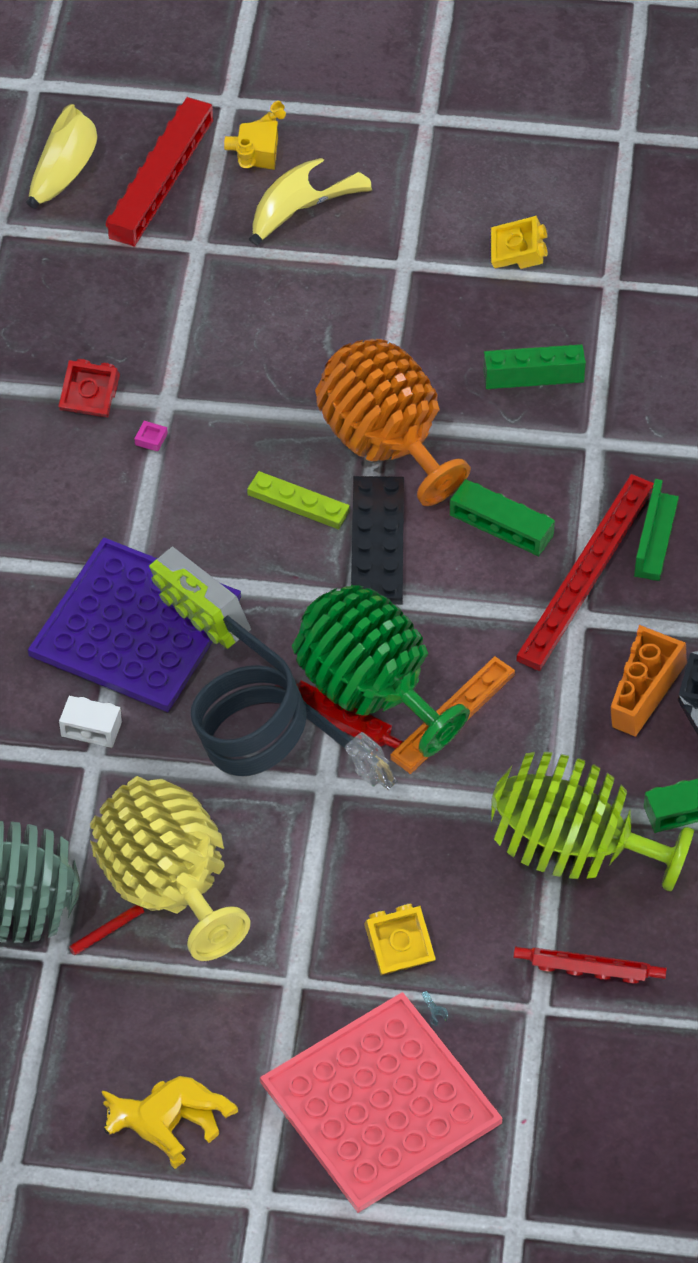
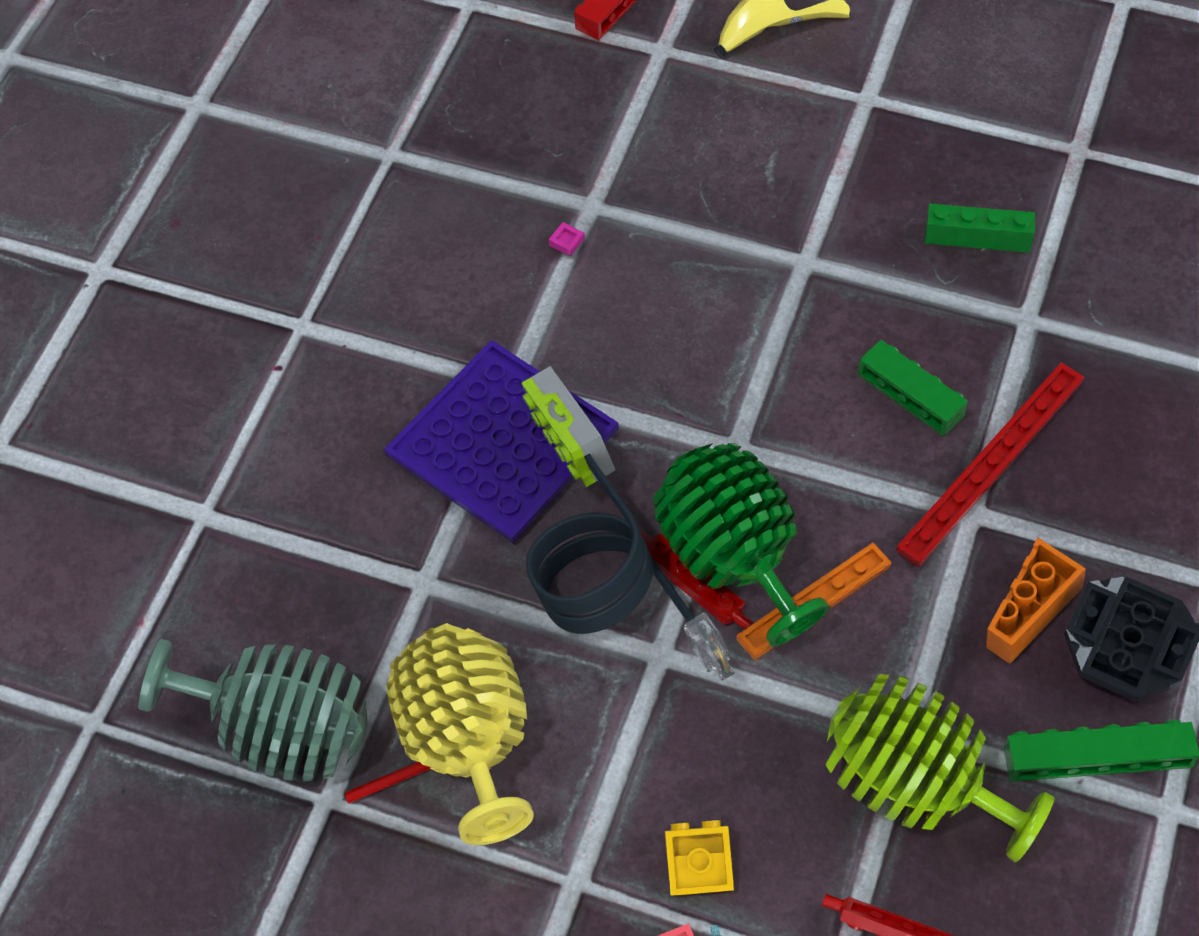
camera: 15 degrees right, 5 degrees up
(89, 388) = (516, 179): red plate -> none
(90, 721) = (429, 539): white brick -> none
(298, 500) = (702, 332): lime plate -> none
(378, 535) = (775, 389): black plate -> none
(384, 410) = (810, 249): orange plant -> none
(518, 243) = (989, 94): yellow plate -> none
(656, 533) = (1075, 433): green fence -> none

